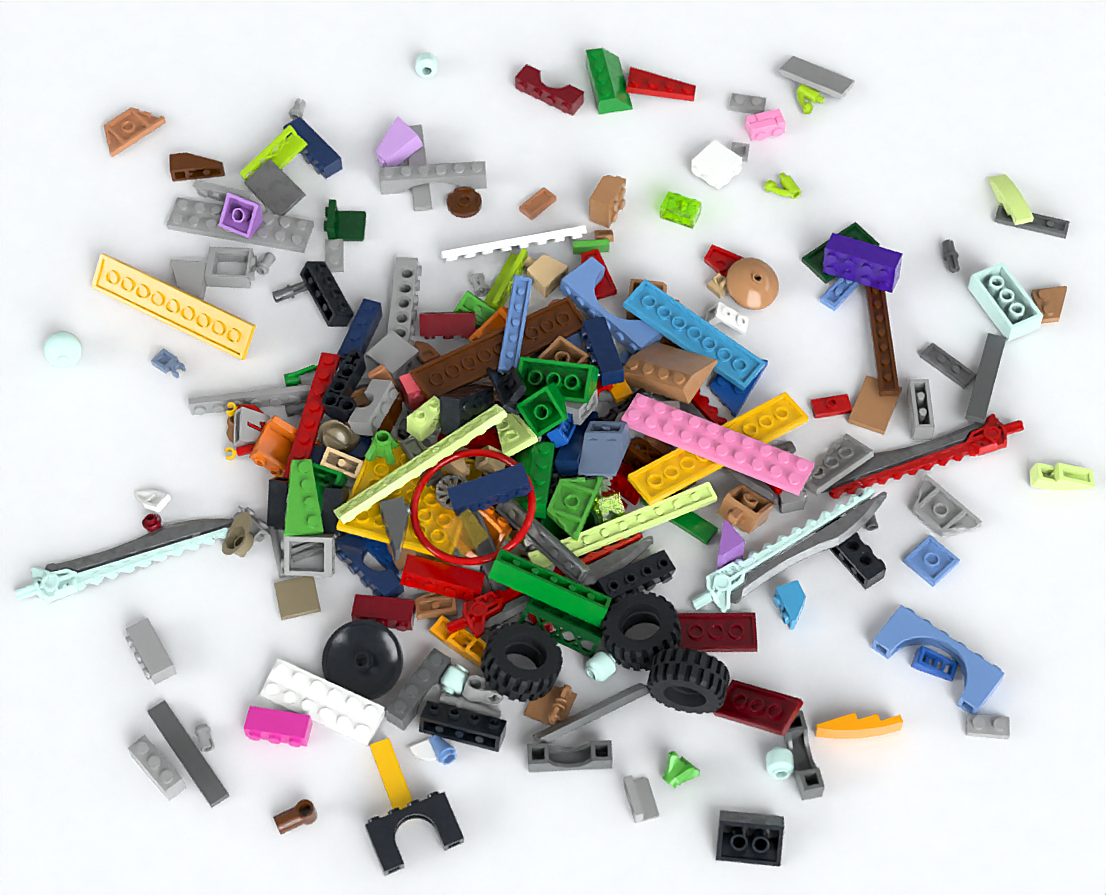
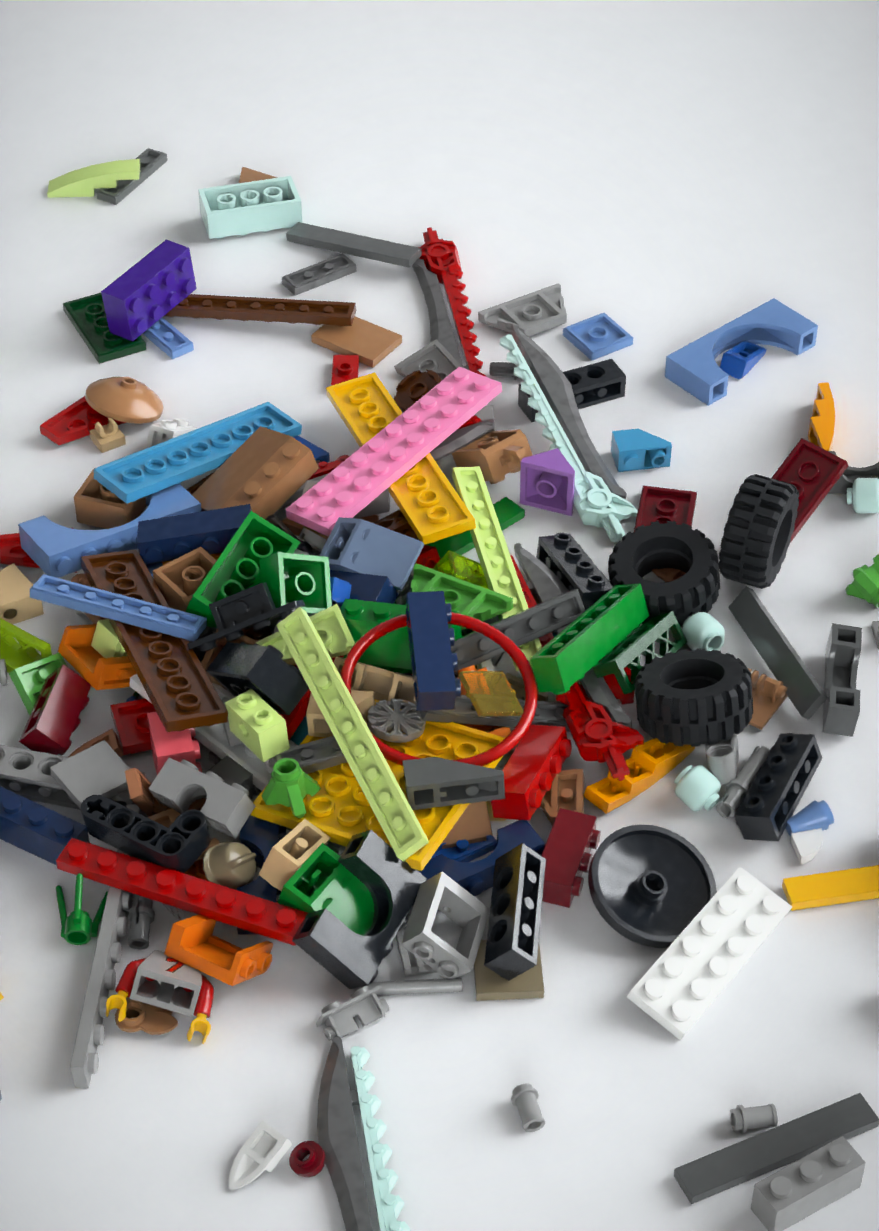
camera: 80 degrees left, 15 degrees down
(150, 651) = (576, 1179): light grey brick -> none
(198, 621) = (525, 1099): none -> light grey pin
(239, 538) = (379, 1021): dark tan piece -> none
(278, 726) = (748, 1013): dark pink brick -> none
(302, 502) = (360, 896): bright green wing -> none
(322, 586) = (515, 912): none -> black brick
(406, 703) = (736, 845): dark grey arch -> none
(819, 452) = (414, 387): none -> reddish brown tile
(920, 409) = (386, 296): light grey brick -> none
(950, 255) = (154, 239): dark grey axle -> none
(987, 726) = (831, 335): light grey plate -> none
(1061, 477) = (510, 221): yellowish green slope -> none

